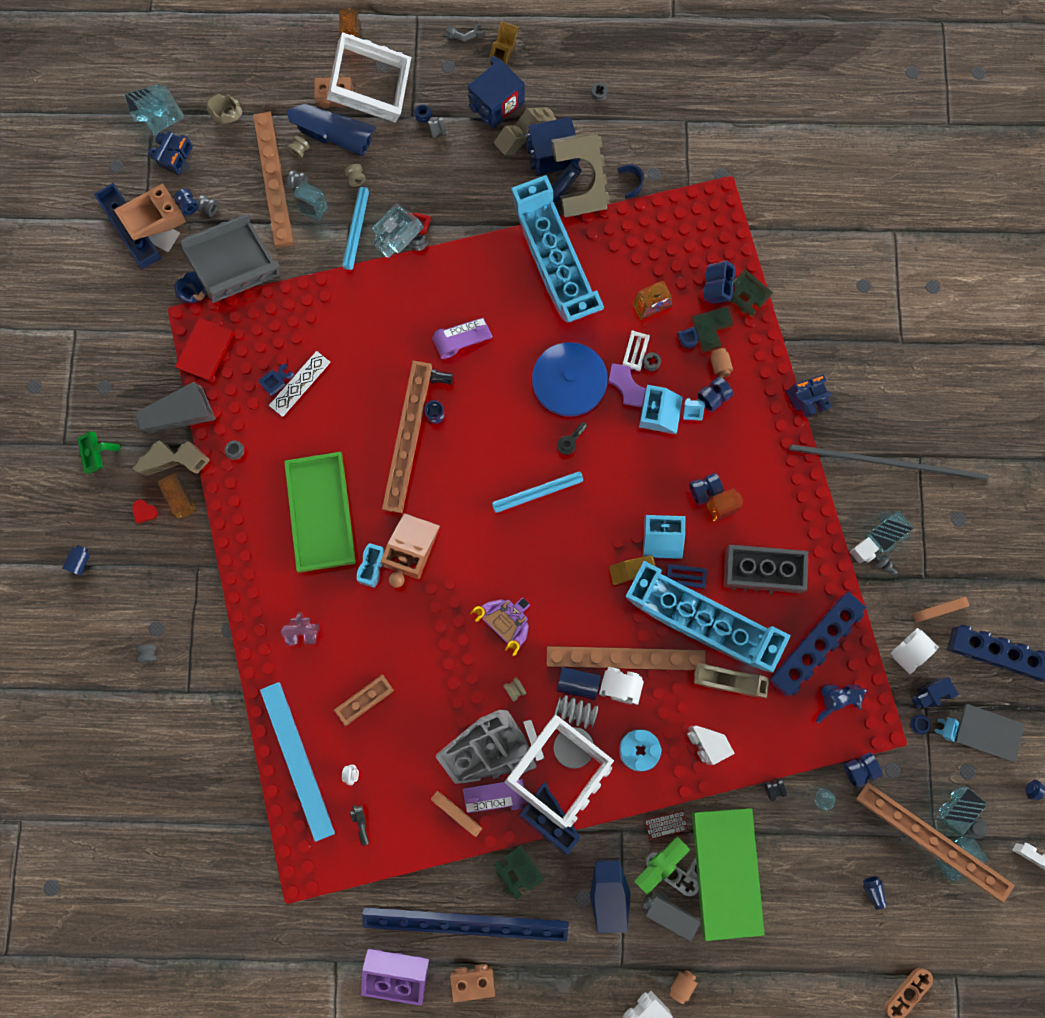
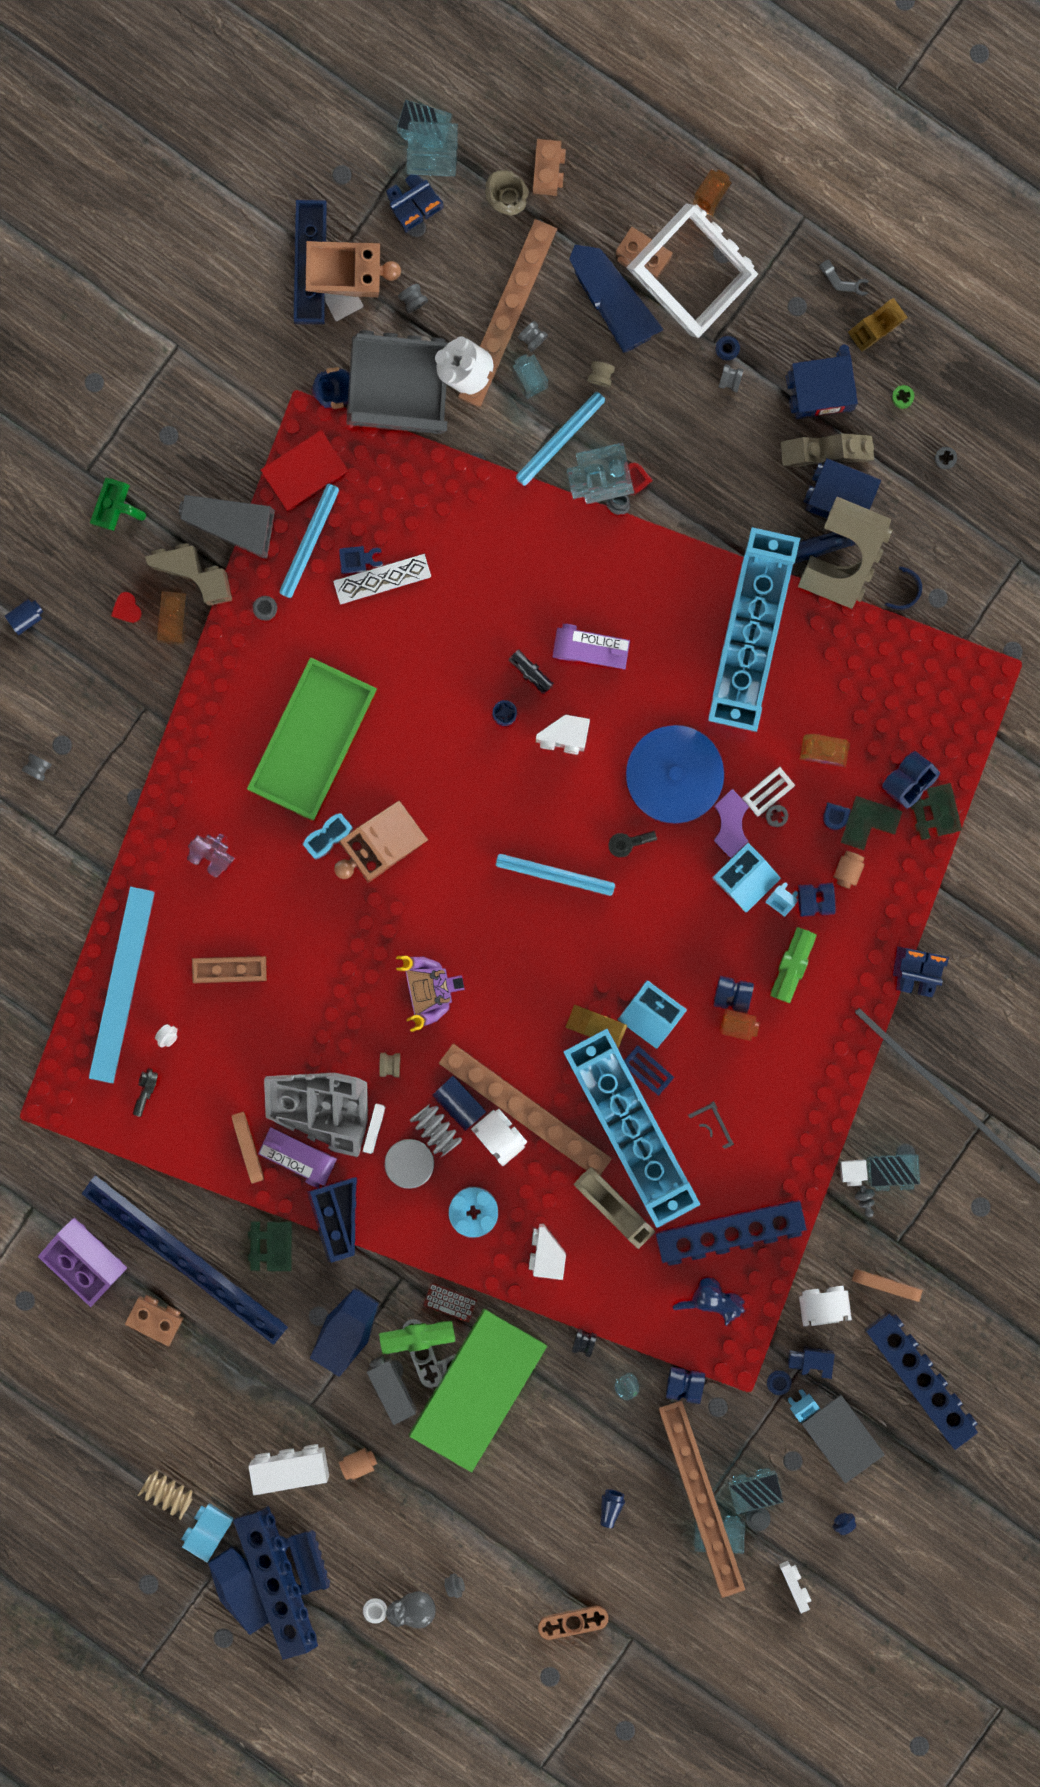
camera: 30 degrees right, 10 degrees up
(185, 200) = (391, 285): dark blue wheel -> none
(236, 390) = (309, 540): none -> medium azure axle
(240, 80) = (547, 164): none -> nougat brick
(264, 220) = (464, 365): none -> white brick
(298, 147) = (559, 295): dark tan wheel -> none
(407, 437) = (457, 721): nougat plate -> none
(482, 397) = (567, 732): none -> white slope
(547, 69) = (900, 404): none -> bright green bush
(592, 786) = (400, 1214): white window -> none
(730, 445) = (793, 965): none -> bright green piece
(766, 569) = (733, 1120): dark grey brick -> none

